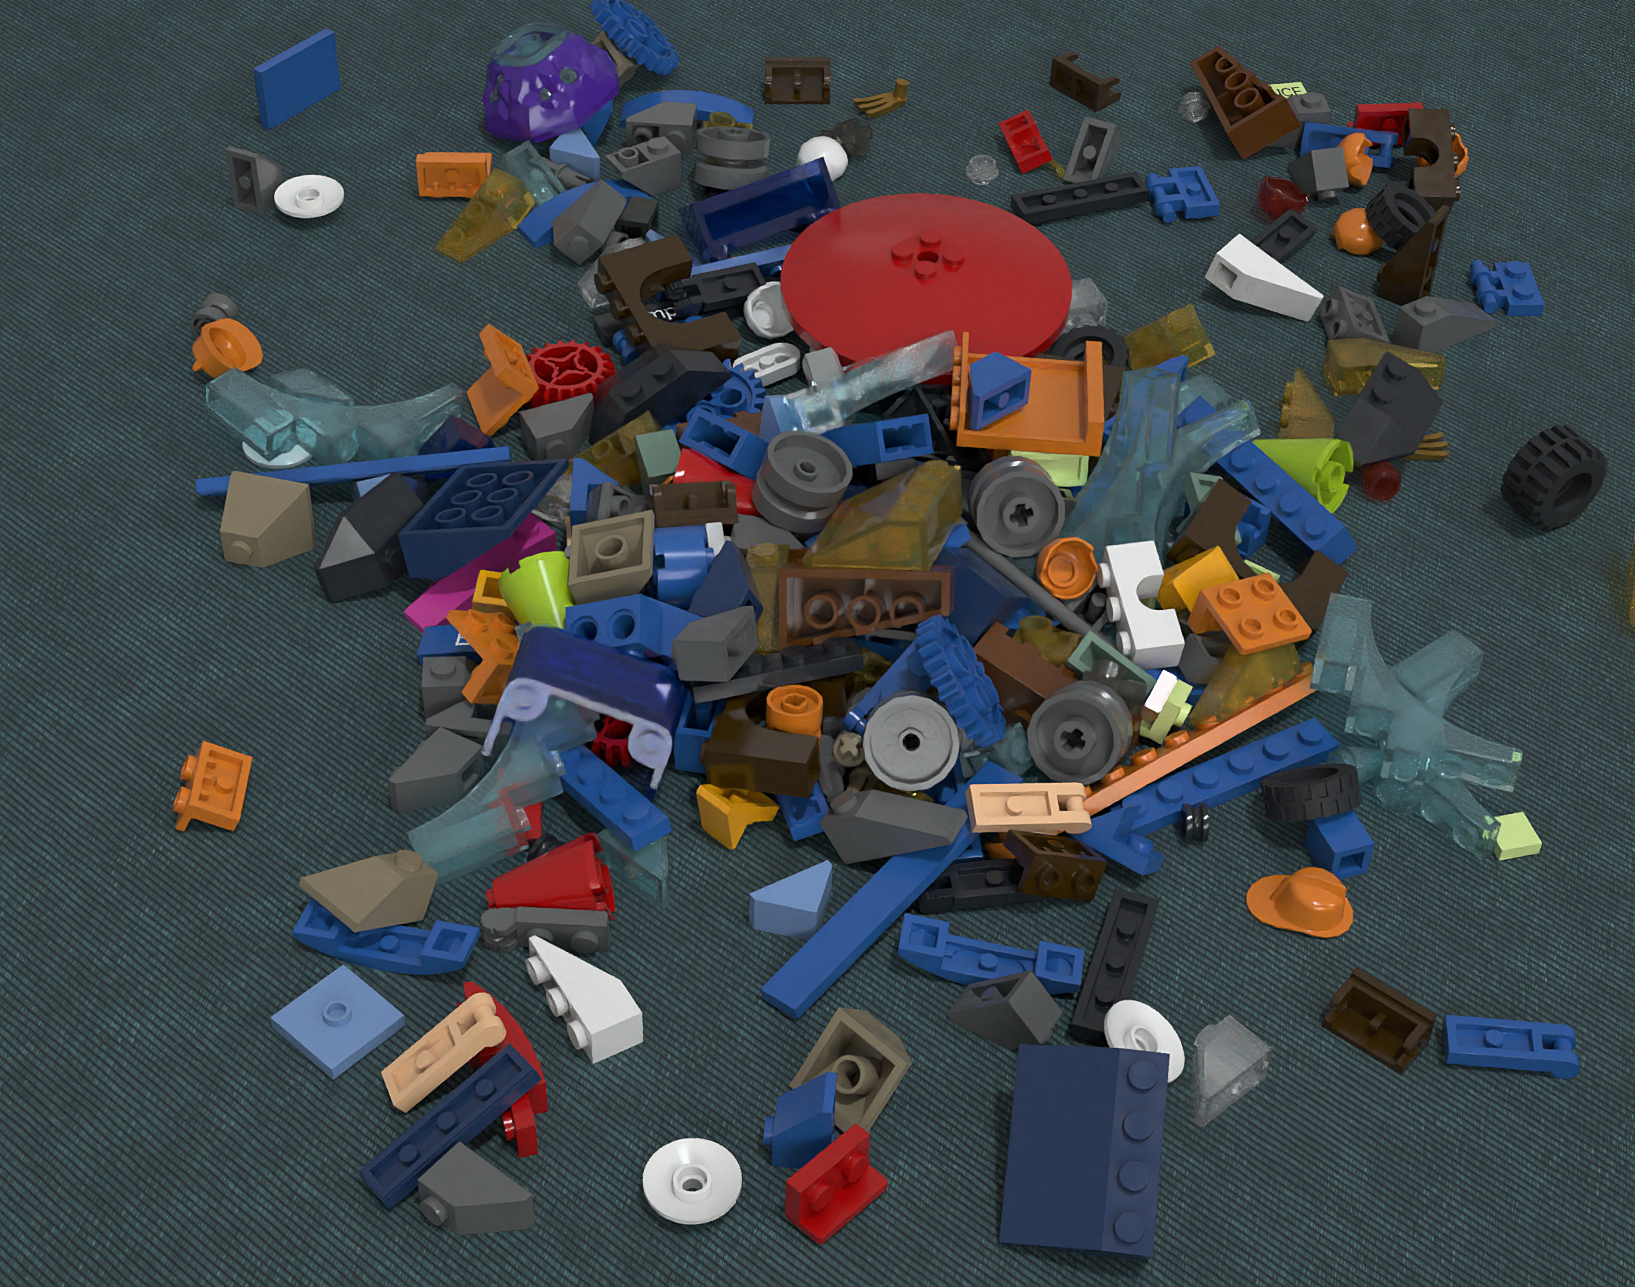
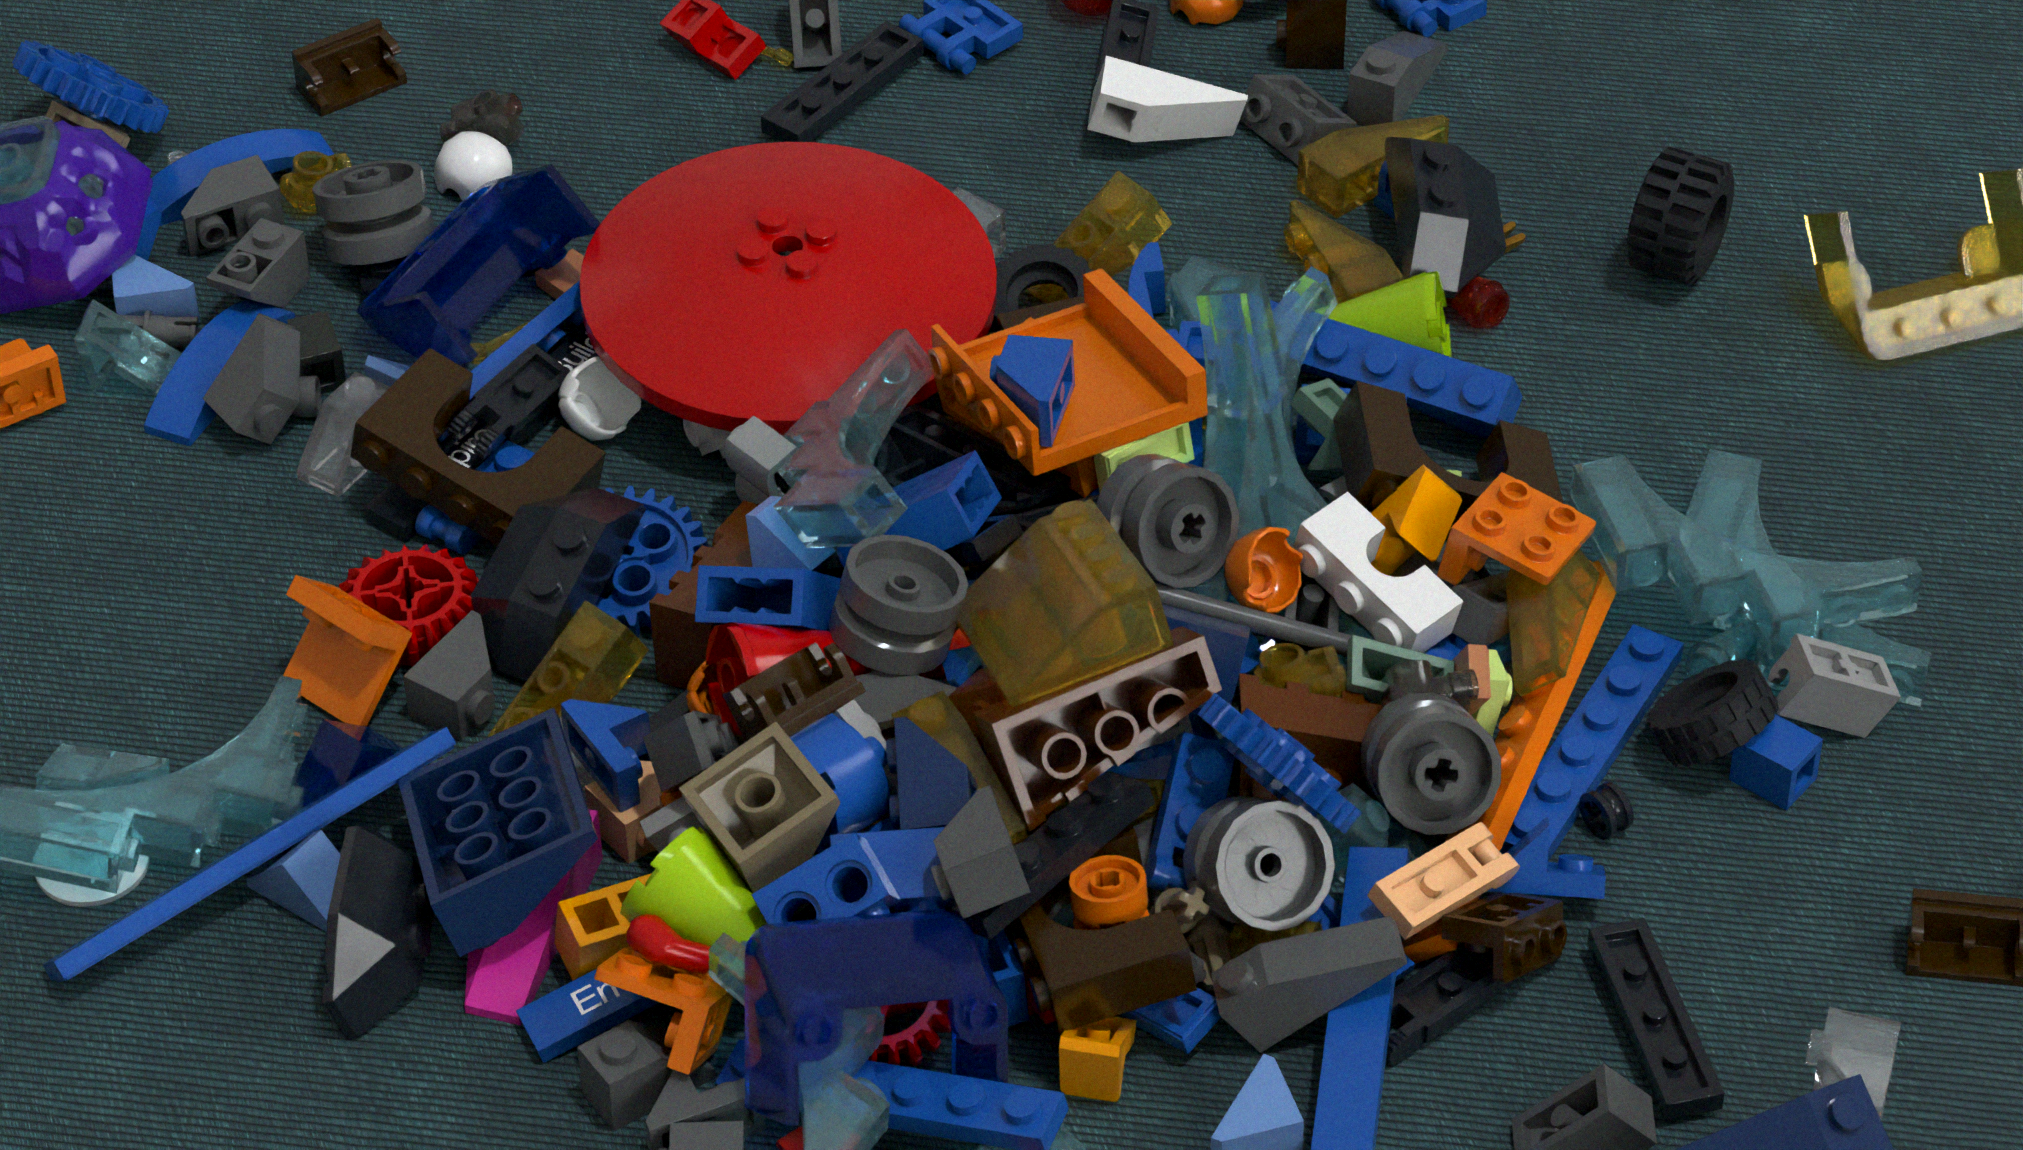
camera: 30 degrees left, 0 degrees up
(266, 520) = (200, 969): dark tan slope -> none
(487, 217) = (101, 431): clear yellow slope -> none
(502, 616) = (663, 945): none -> red arm
(656, 456) = (648, 661): sand green slope -> none
(772, 362) = (650, 463): white plate -> none
(884, 102) = (481, 50): pearl gold piece -> none
(969, 961) = (1512, 1085): blue slope -> none
(982, 169) = (688, 95): clear plate -> none
(1140, 1027) = (1749, 1079): white dish -> none
(1302, 902) = (1785, 846): orange piece -> none
(1411, 813) = (1833, 686): none -> light grey hinge
(1516, 837) = (1947, 661): yellowish green tile -> none

